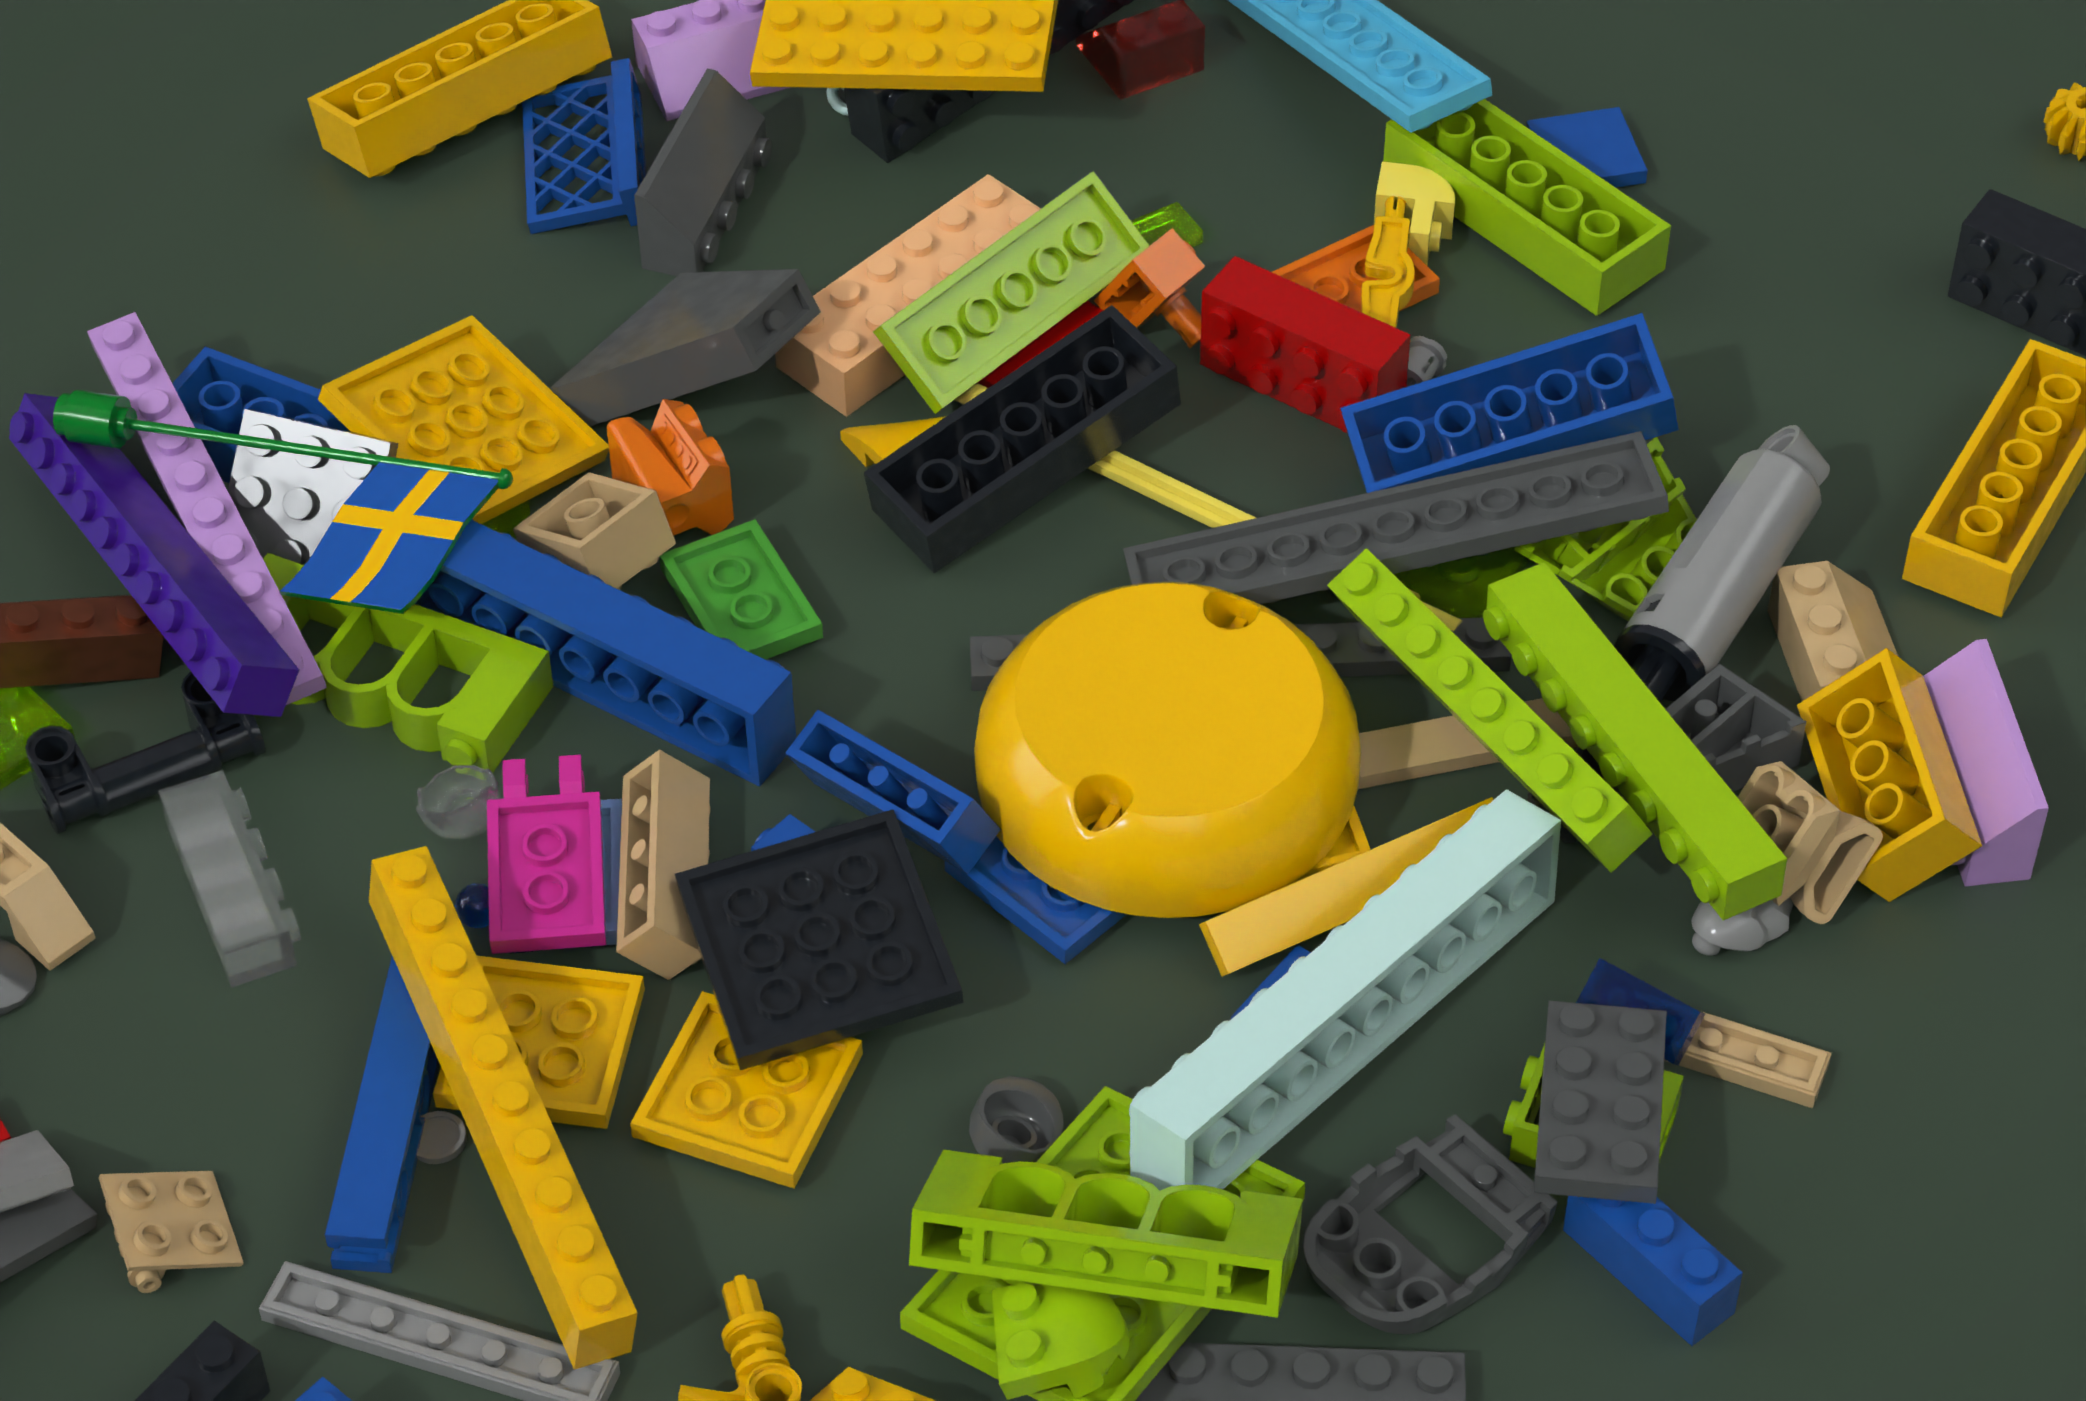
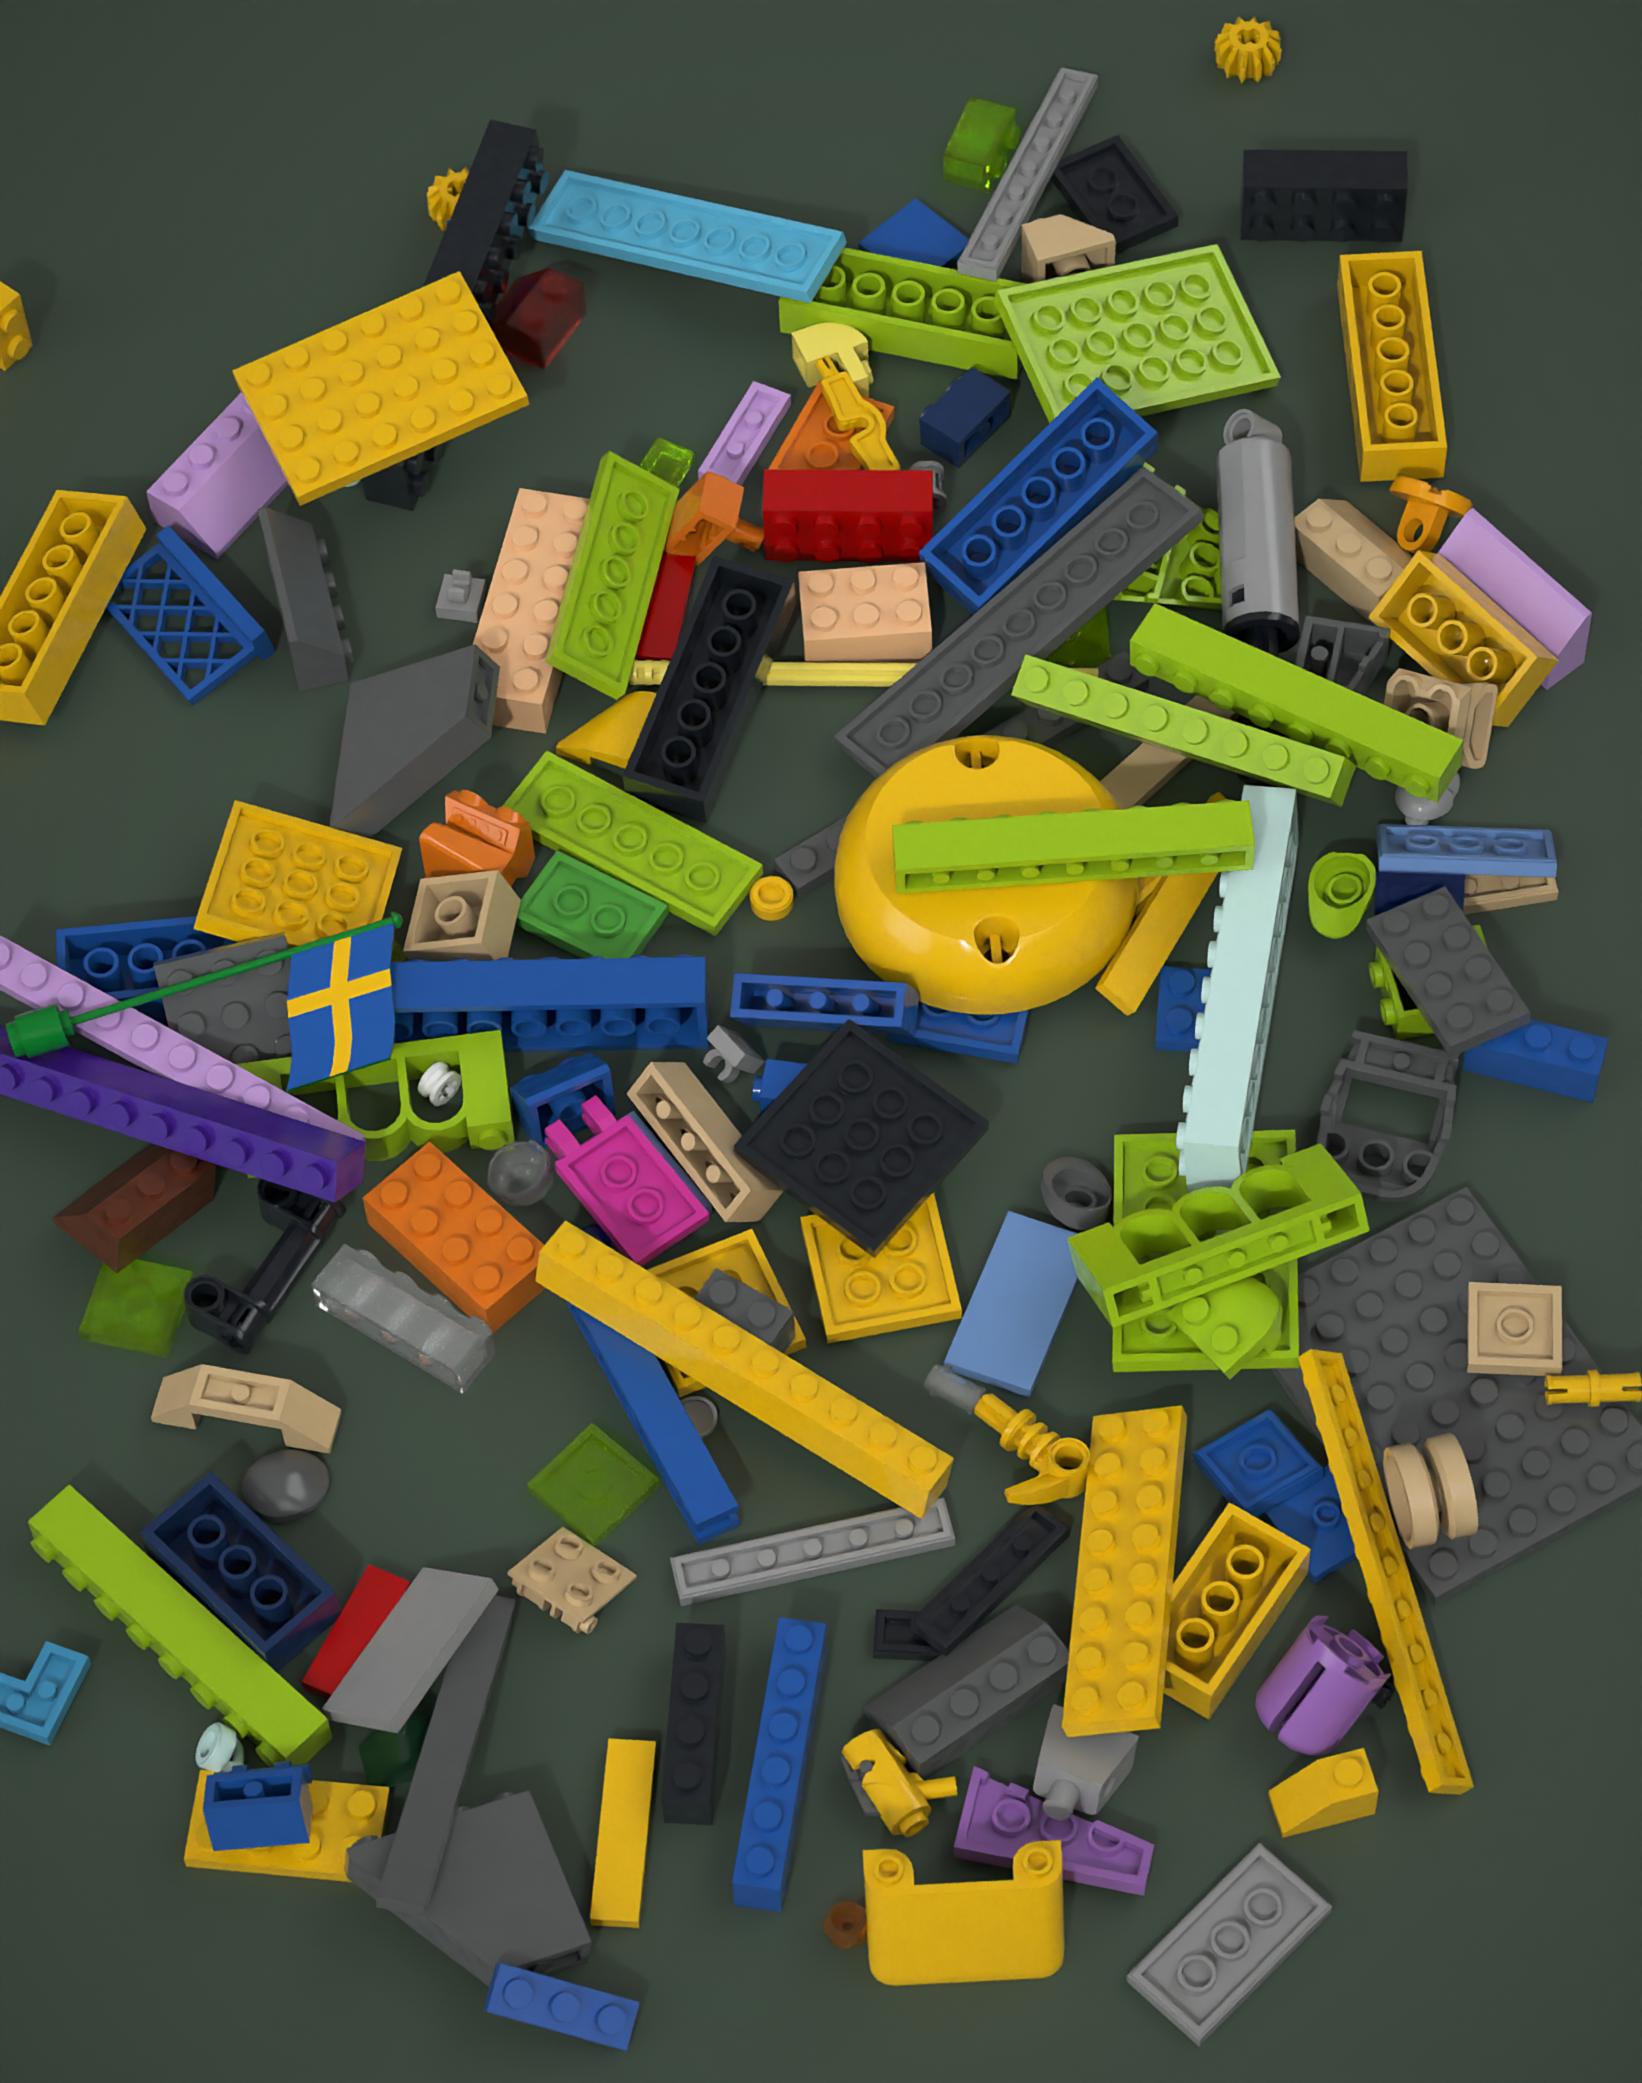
camera: 30 degrees left, 10 degrees up
(275, 1146) = (593, 1485): none -> clear neon green tile
(338, 819) = (456, 1236): none -> orange brick
(447, 668) = (439, 1083): none -> white bush
(545, 735) = (559, 1095): none -> blue slope
(549, 1050) = (749, 1309): none -> dark grey brick
(717, 1244) = (953, 1388): none -> clear pin
(768, 795) = (735, 1052): none -> light grey tile
(839, 552) = (634, 842): none -> lime plate
(848, 1212) = (1016, 1306): none -> medium blue tile
(857, 247) = (461, 597): none -> light grey tile
(940, 675) = (771, 898): none -> yellow tile
(1250, 745) = (1073, 846): none -> lime brick
(1251, 449) = (866, 614): none -> light nougat brick
(1270, 236) = (747, 433): none -> lavender plate
(1507, 318) = (964, 417): none -> dark blue brick
(1549, 966) = (1340, 892): none -> lime piece
(1725, 86) = (981, 144): none -> clear neon green brick
(1725, 222) = (1063, 248): none -> tan slope
(1732, 995) = (1466, 850): none -> medium blue tile
(1747, 128) = (1027, 174): none -> light grey tile
(1754, 320) = (1149, 329): none -> lime plate
(1833, 193) = (1114, 193): none -> black plate
(1947, 631) = (1425, 507): none -> light orange tile

